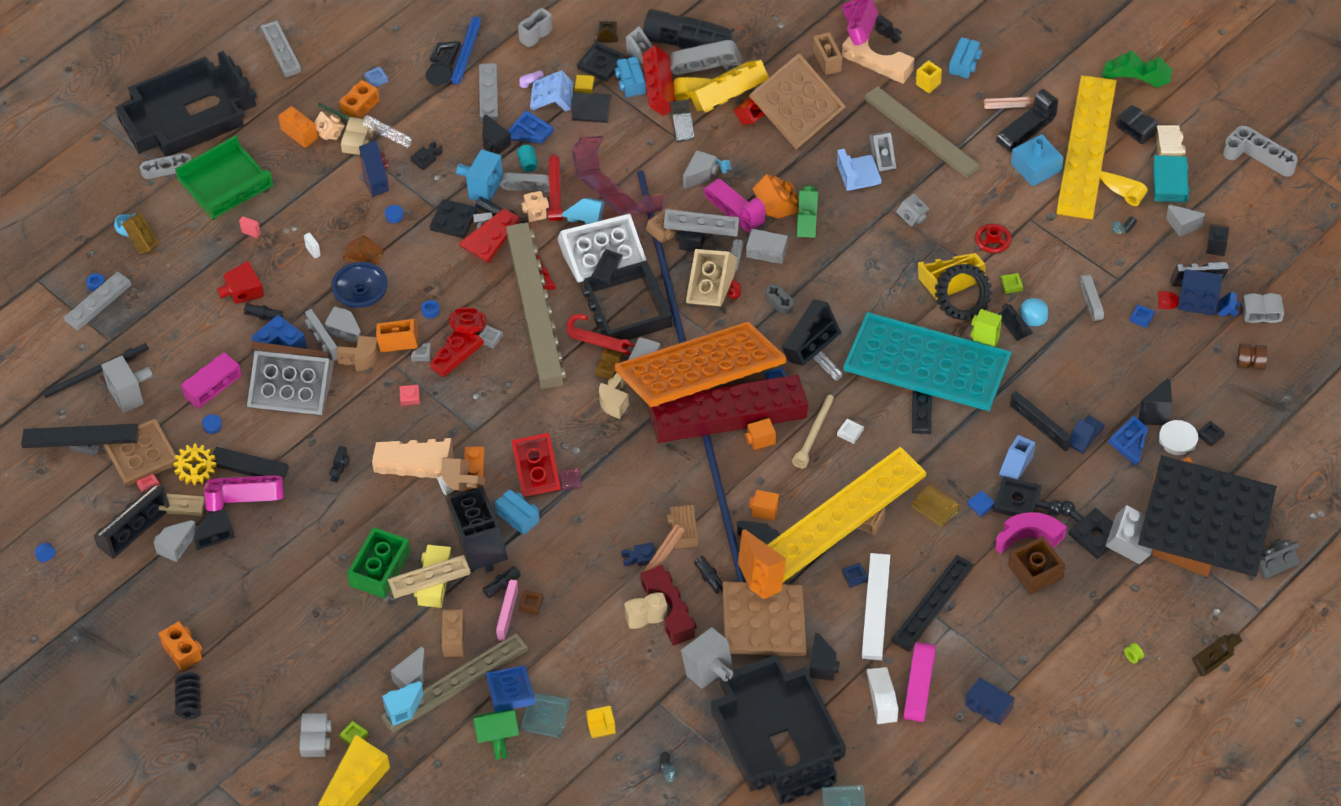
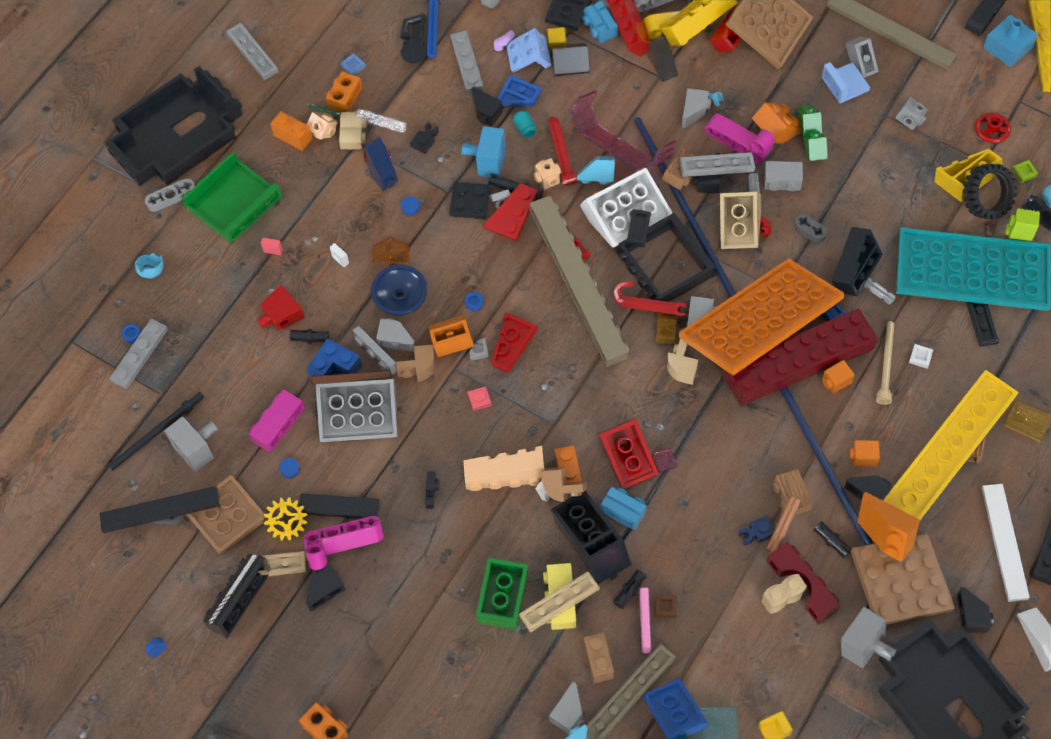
camera: 10 degrees left, 10 degrees up
(140, 233) = (164, 274): pearl gold slope -> none
(145, 483) = (242, 548): coral tile -> none
(174, 540) = (286, 607): light grey slope -> none
(467, 320) = (515, 307): red tile -> none
(491, 336) = (542, 319): light grey tile -> none
(514, 182) = (530, 150): light grey beam -> none
(854, 575) = (973, 511): dark blue tile -> none

